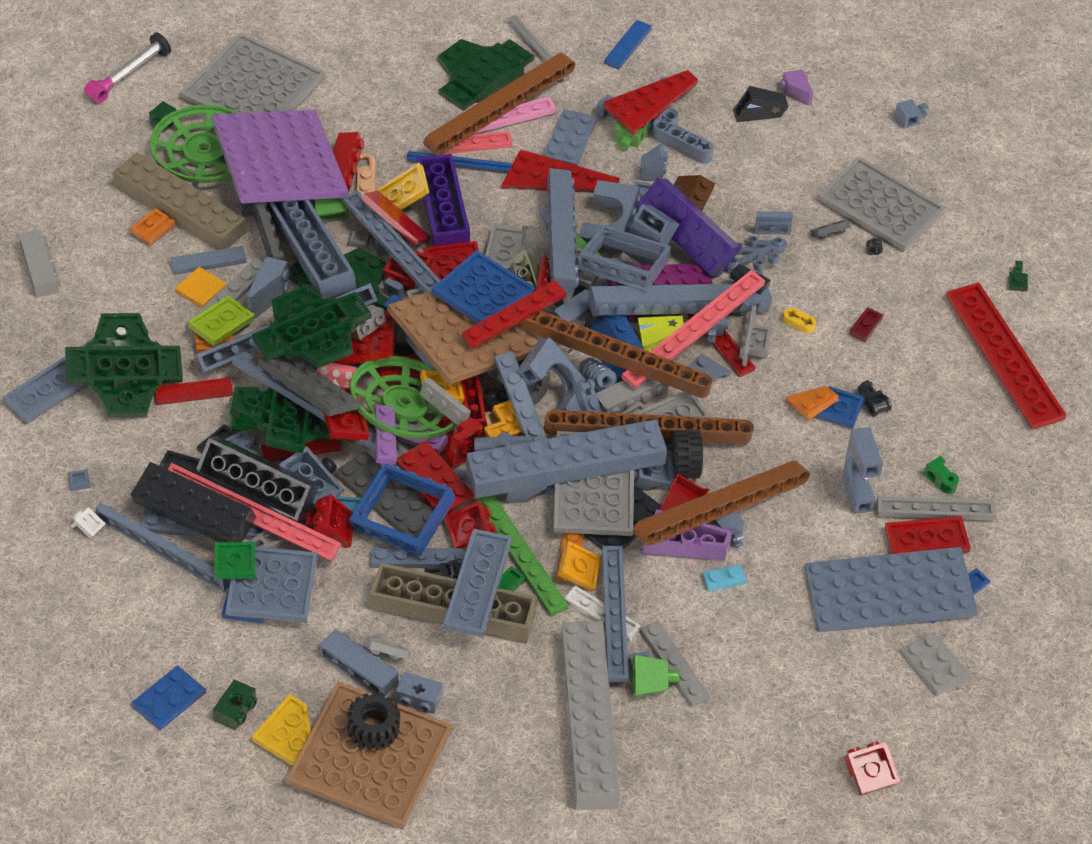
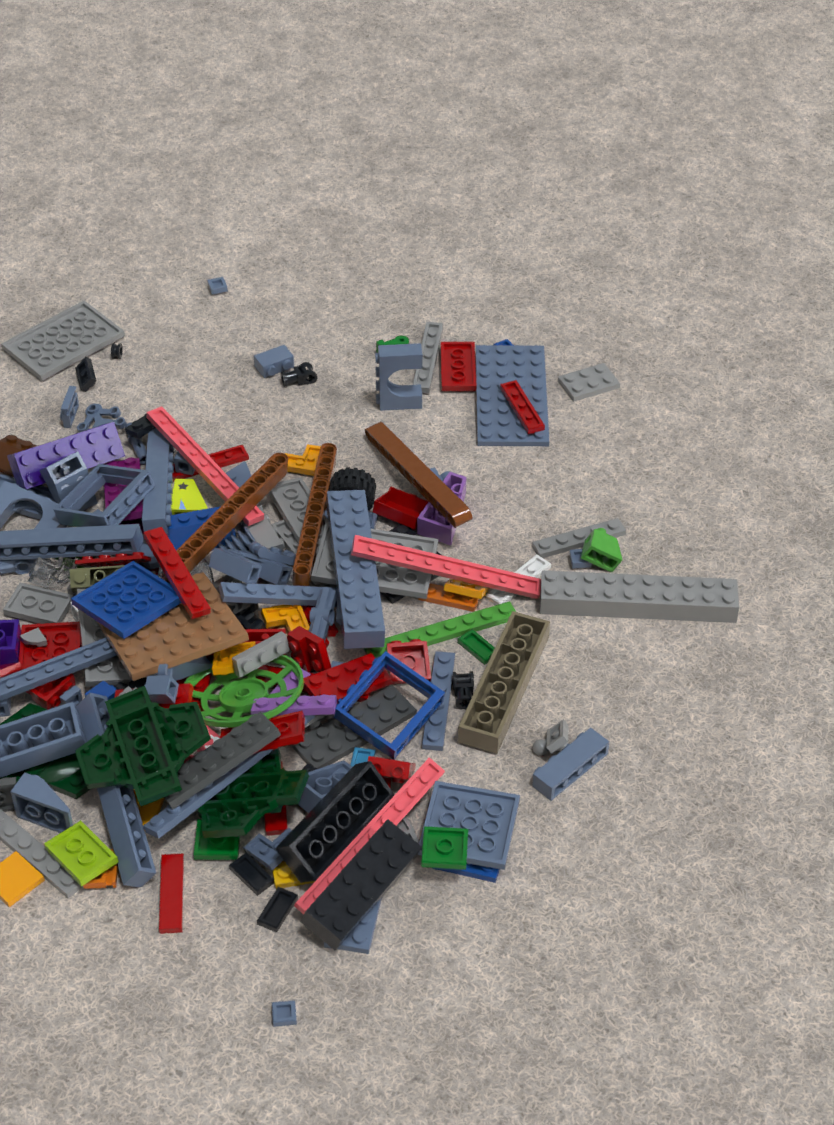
camera: 80 degrees left, 5 degrees down
(41, 391) = (127, 1028): sand blue plate -> none
(88, 522) = (352, 1002): white bracket -> none
(123, 365) = (130, 950): dark green plate -> none
(160, 546) = (393, 935): sand blue plate -> none
(168, 697) = (601, 934): blue plate -> none
(236, 694) = (617, 871): dark green brick -> none
(285, 730) = (652, 829): yellow plate -> none
(370, 782) = (681, 763): medium nougat plate -> none
(373, 707) = (657, 745): black tyre -> none
(379, 329) = (162, 687): none -> sand blue brick
(419, 693) = (610, 717): sand blue brick -> none
(457, 250) = (34, 637): none -> light grey tile
(477, 583) = (497, 648): sand blue plate -> none
(578, 529) = (446, 567): none -> coral plate
(615, 614) = (530, 564): sand blue plate -> none
(724, 578) = (486, 495): medium azure plate -> none
(736, 410) = (304, 464): none -> light orange plate
(757, 338) = (216, 438): light grey bracket -> none
(800, 320) = (191, 410): yellow beam -> none
(812, 401) = (296, 411): orange wing -> none
(845, 410) = (303, 397): blue plate -> none
(861, 594) = (522, 407): none -> red tile
(866, 324) = (209, 368): dark red plate -> none
(871, 767) = (697, 428): plate -> none
(890, 375) = (274, 361): none -> sand blue brick
(1006, 356) = (264, 294): red plate -> none
(1009, 312) = (217, 285): none -> sand blue plate
(1017, 280) = (178, 275): dark green plate -> none

